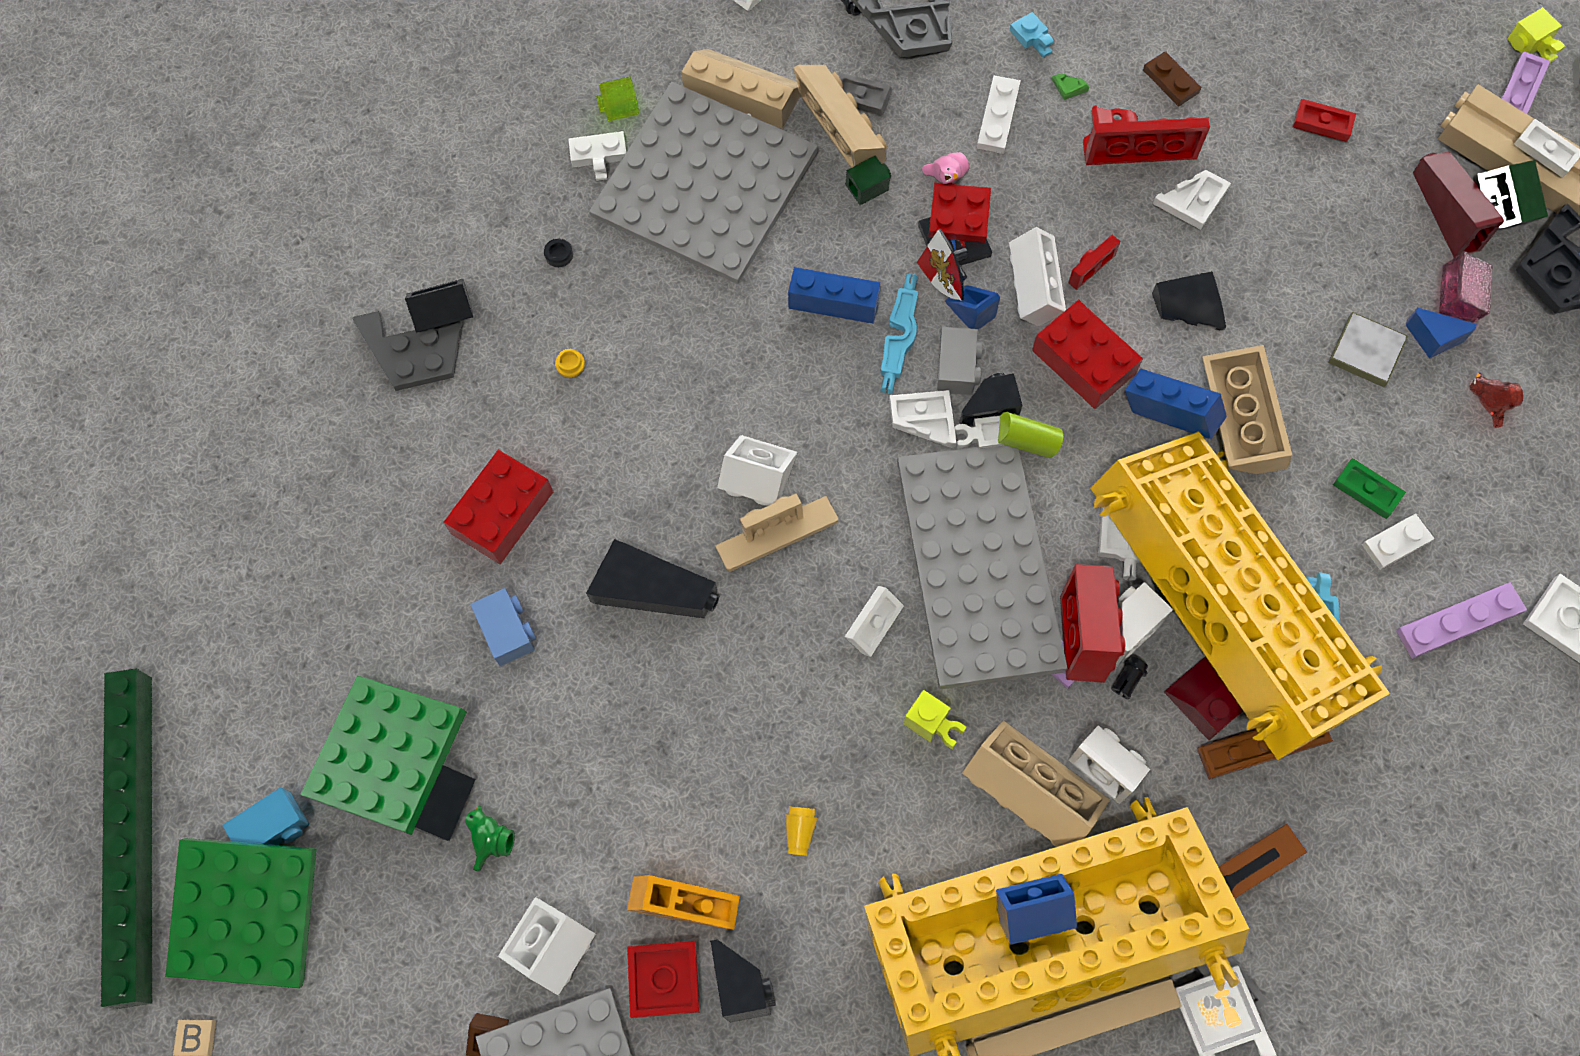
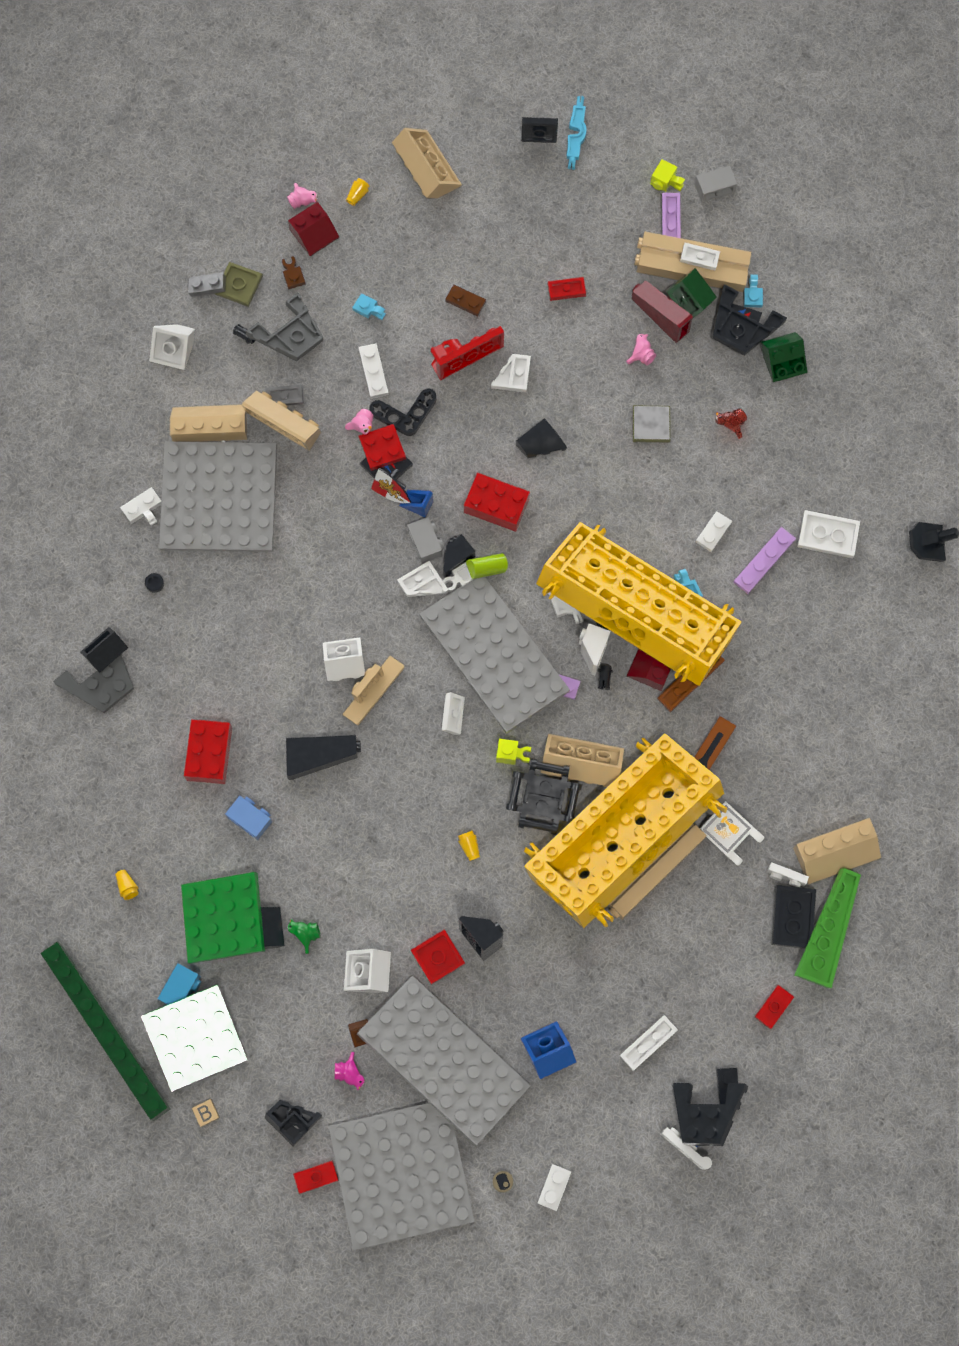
camera: 30 degrees left, 5 degrees up
(283, 638) = (126, 885): none -> yellow cone
(570, 363) = (200, 647): yellow plate -> none
(617, 99) = (137, 467): clear neon green brick -> none
(682, 902) = (427, 913): light orange slope -> none
(833, 295) = (334, 533): blue brick -> none
(868, 180) = (317, 451): dark green brick -> none
(897, 346) = (381, 529): medium azure piece -> none
(949, 812) = (543, 796): none -> black brick
(1009, 191) = (404, 419): none -> black beam
(1036, 908) = (612, 823): blue brick -> none
(1037, 277) = (446, 467): white brick -> none
(1069, 86) = (406, 332): bright green tile -> none
(1091, 623) = (571, 658): brick -> none
(1093, 261) = (473, 442): red plate -> none
(1110, 764) = (615, 729): white slope -> none
(1176, 403) = (559, 510): blue brick -> none
(1254, 425) = (600, 495): tan slope -> none
(1369, 488) = (685, 508): green plate -> none
(1399, 245) = (642, 351): none -> bright pink animal
(1437, 331) = (685, 396): blue slope -> none
(1466, 288) = (690, 363): clear pink brick -> none

